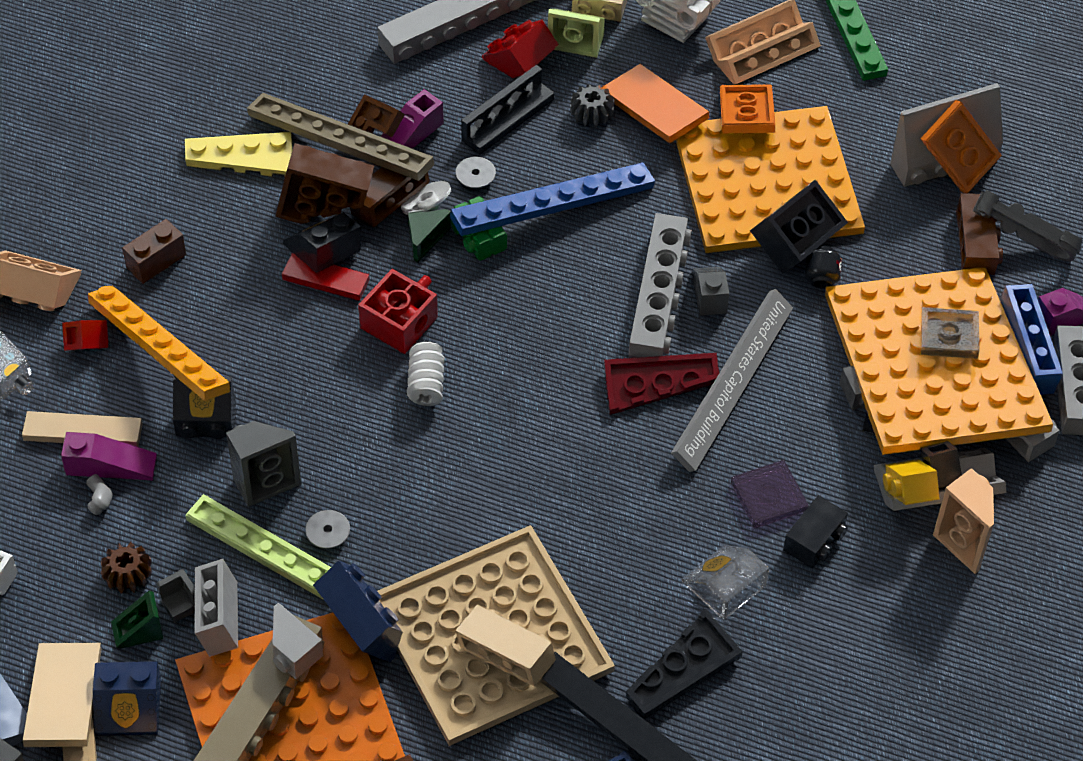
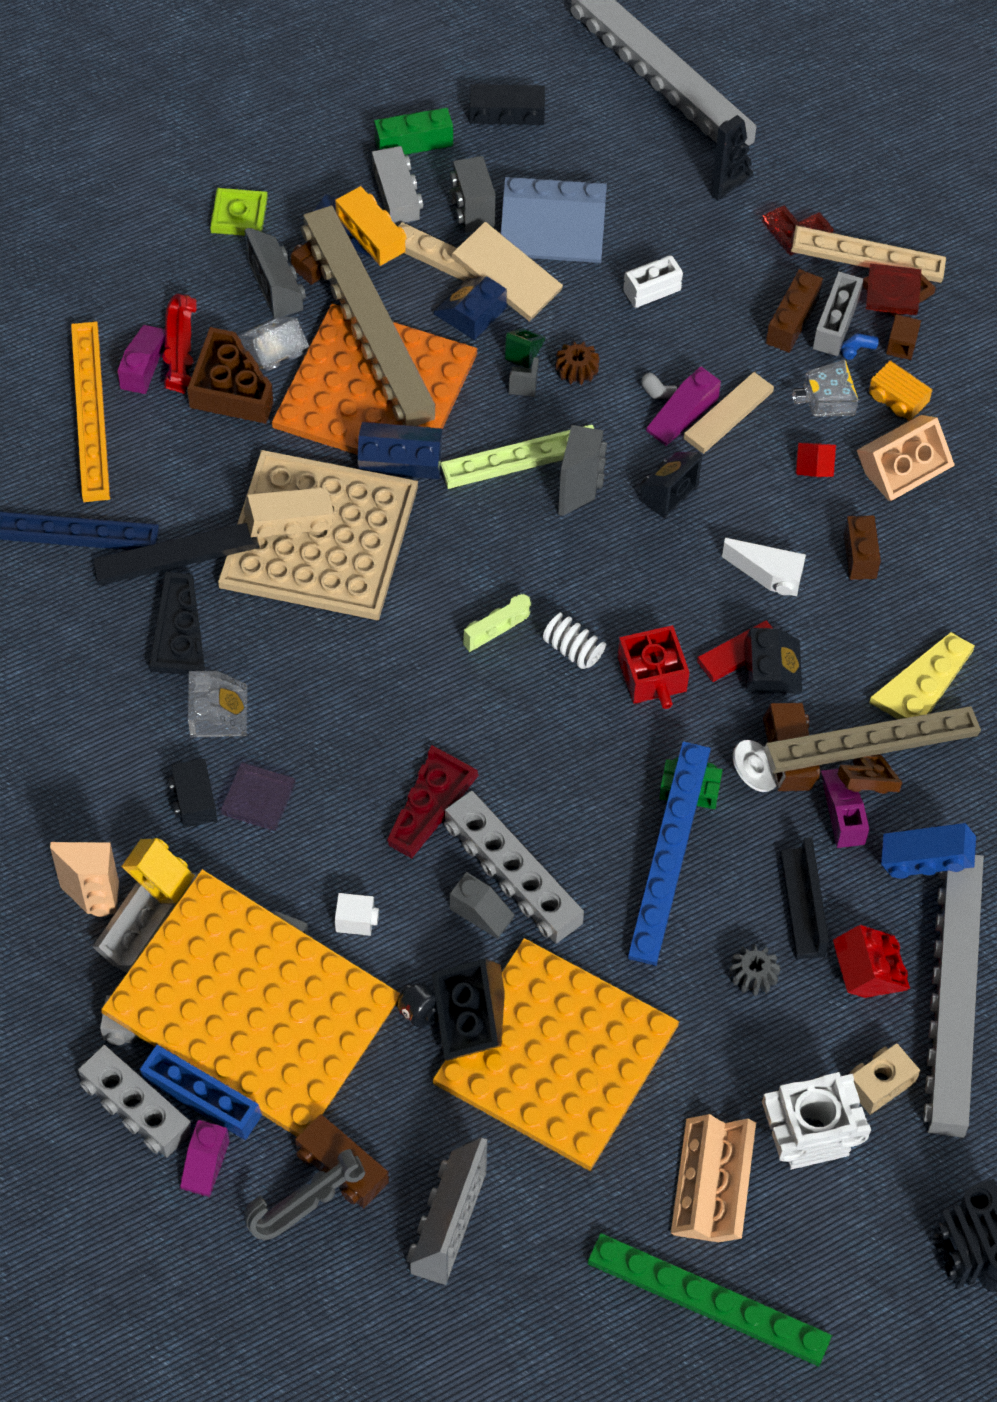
camera: 130 degrees right, 5 degrees up
(159, 343) = (751, 474): light orange plate -> none
(216, 607) = (487, 379): light grey brick -> none
(226, 293) = (769, 566): none -> white slope
(293, 643) = (404, 379): light grey slope -> none
(321, 185) = (817, 673): reddish brown brick -> none
(327, 529) = (499, 498): flat silver piece -> none
(406, 52) = (929, 850): none -> blue brick
(426, 230) = (721, 739): dark green slope -> none
(456, 441) = (497, 622): none -> yellowish green hinge
(475, 172) = (757, 829): piece -> none
(576, 32) = (855, 1019): yellowish green slope -> none
(656, 103) = (713, 1020): orange tile -> none
(731, 381) = (378, 852): light grey tile -> none
(747, 109) = (640, 1087): orange tile -> none
(798, 354) = (355, 914): none -> white brick
(945, 460) = (152, 906): black brick -> none
(950, 332) = (254, 1013): clear smoke plate -> none
(961, 146) = (426, 1200): orange tile -> none

